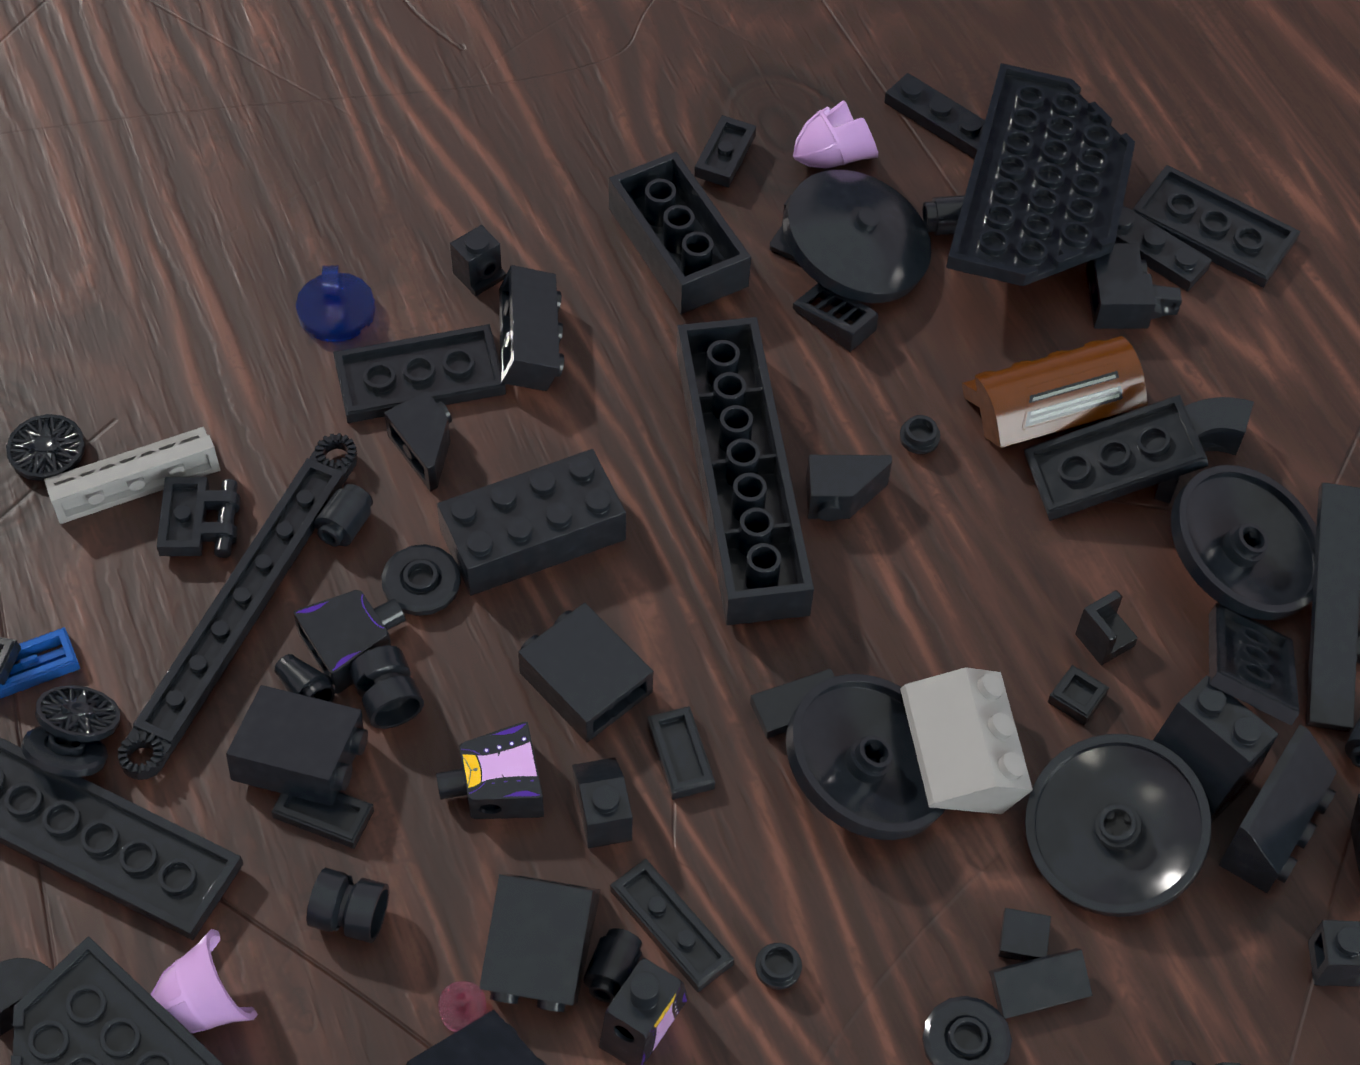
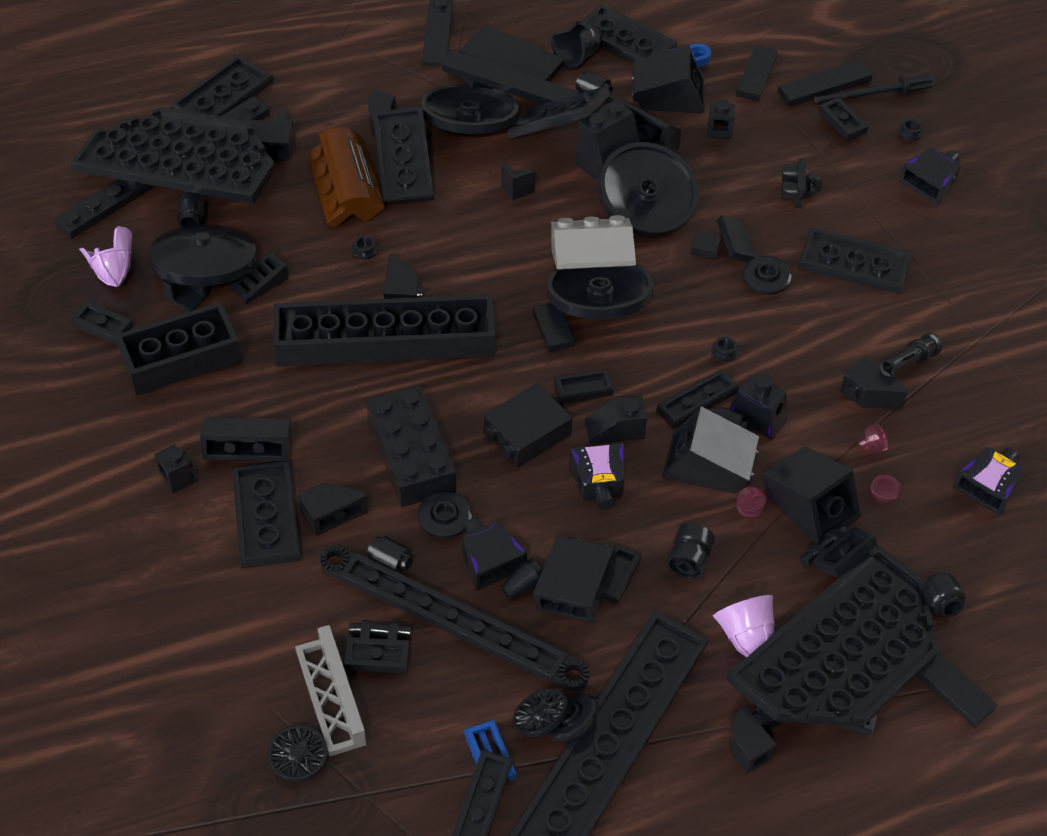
camera: 85 degrees left, 5 degrees down
(335, 305) = (194, 563): clear blue tile -> none
(386, 687) = (534, 528): black wheel -> none
(1078, 694) = (555, 202): black tile -> none

